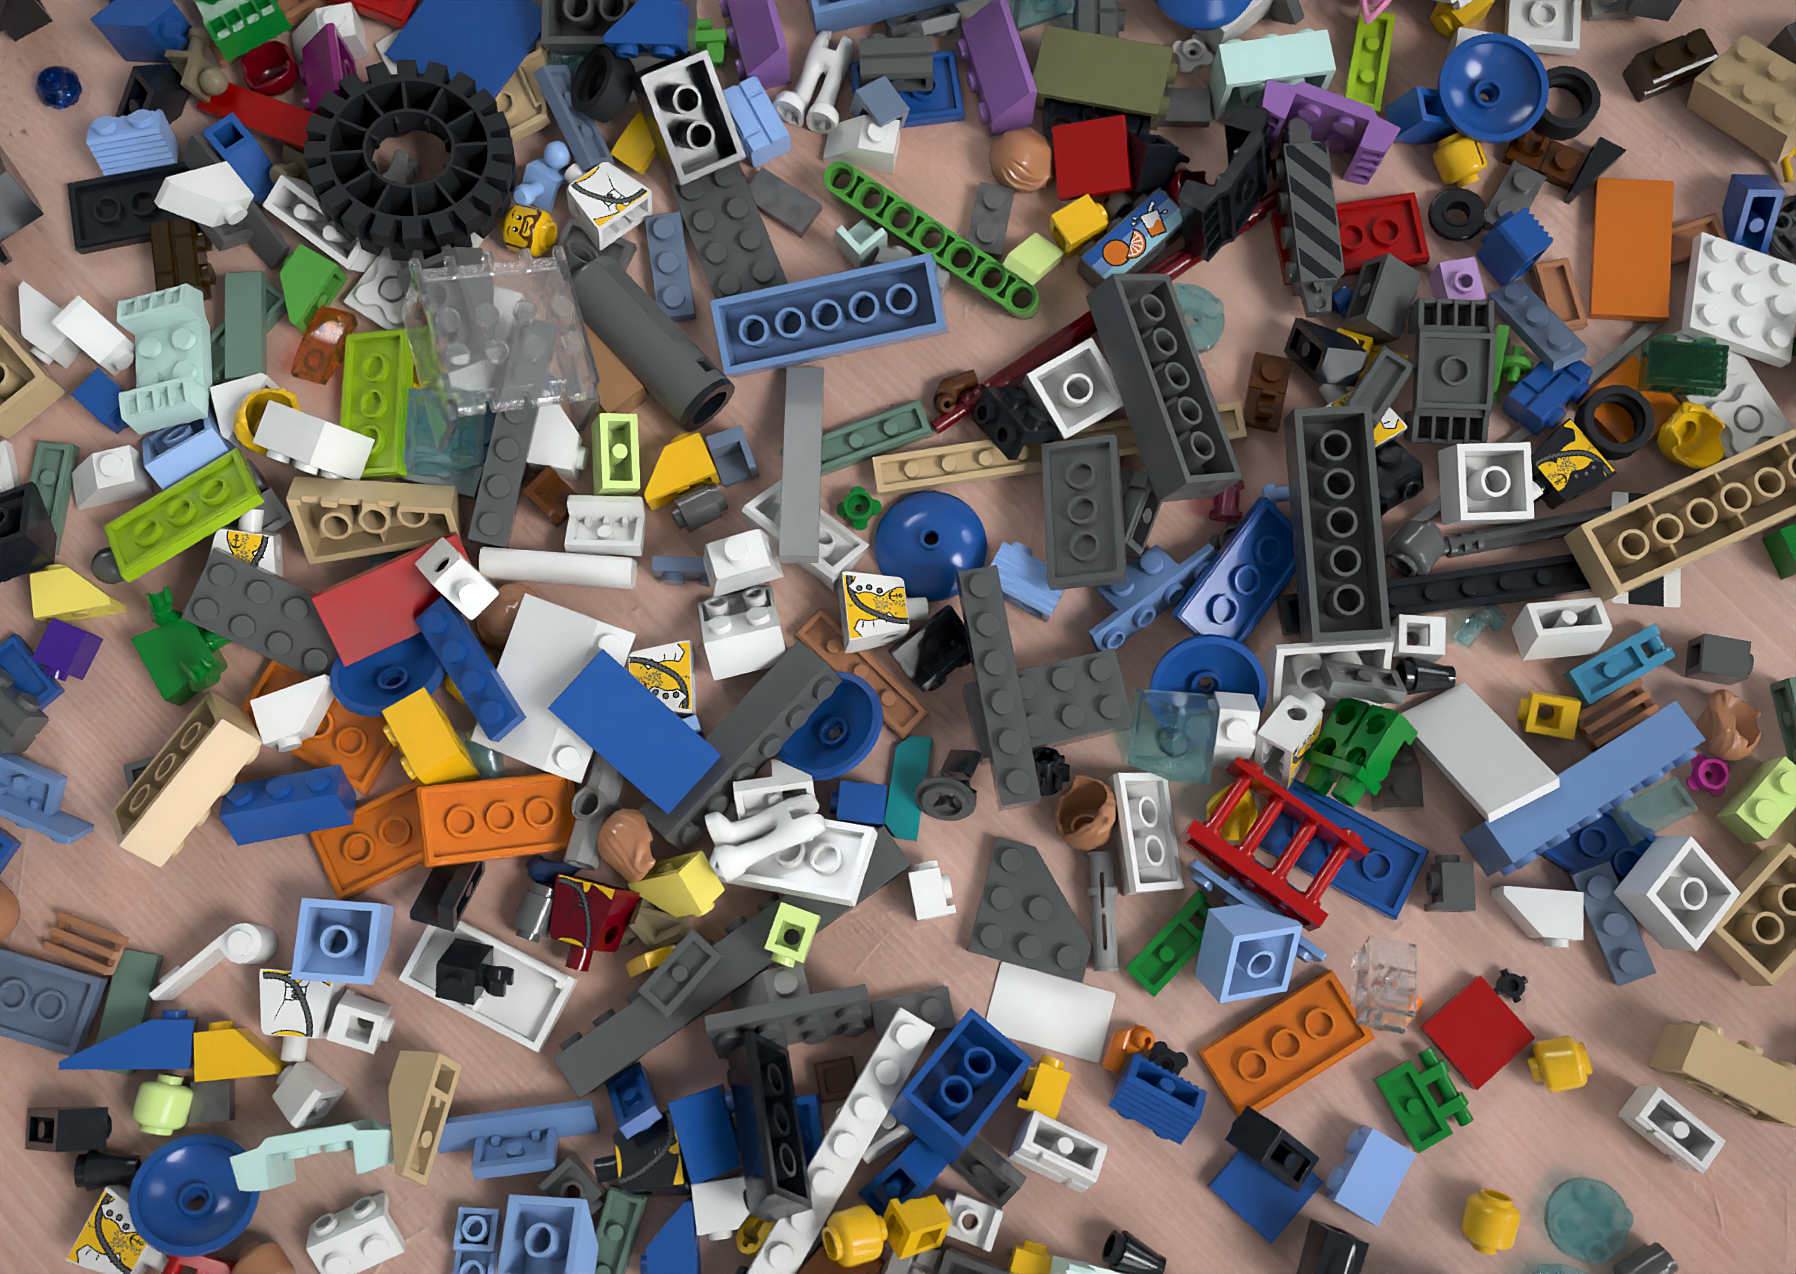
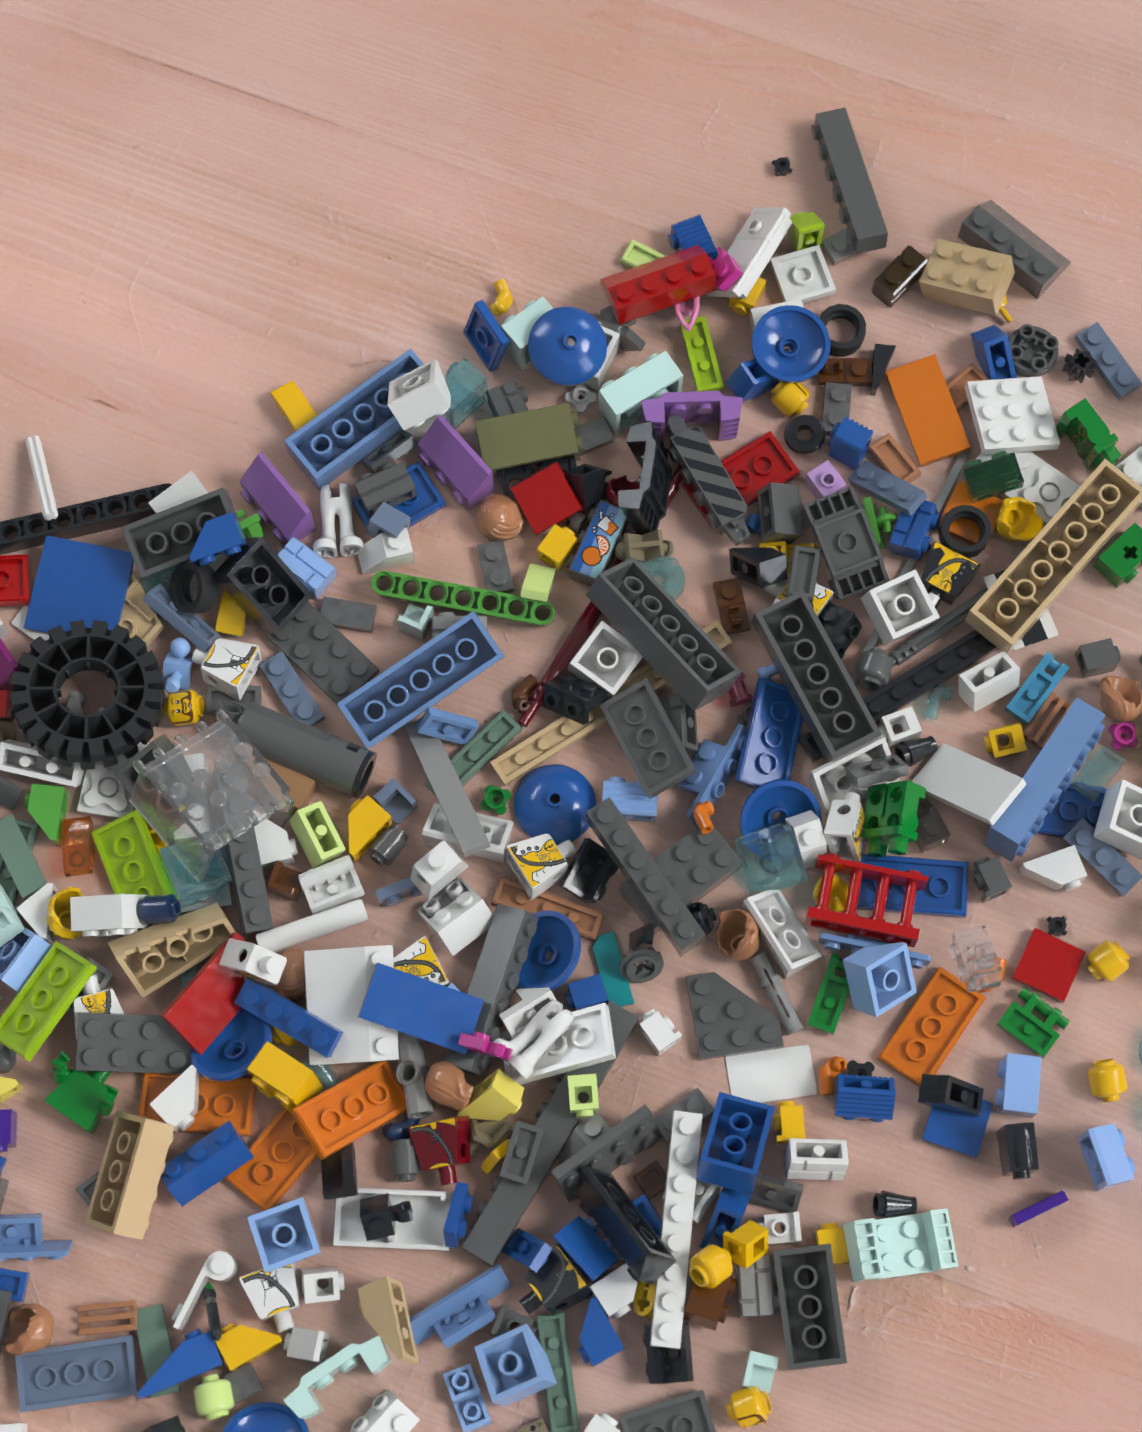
camera: 25 degrees left, 5 degrees down
(209, 1001) = (212, 1311): none -> black piece
(374, 462) = (158, 909): none -> dark blue brick
(558, 1023) = (455, 1223): none -> blue plate
(689, 810) = (480, 1043): none -> dark pink plate
(838, 388) = (447, 726): none -> medium blue plate
(1107, 642) = (701, 816): none -> orange arm
(1188, 269) = (643, 547): none -> dark tan piece

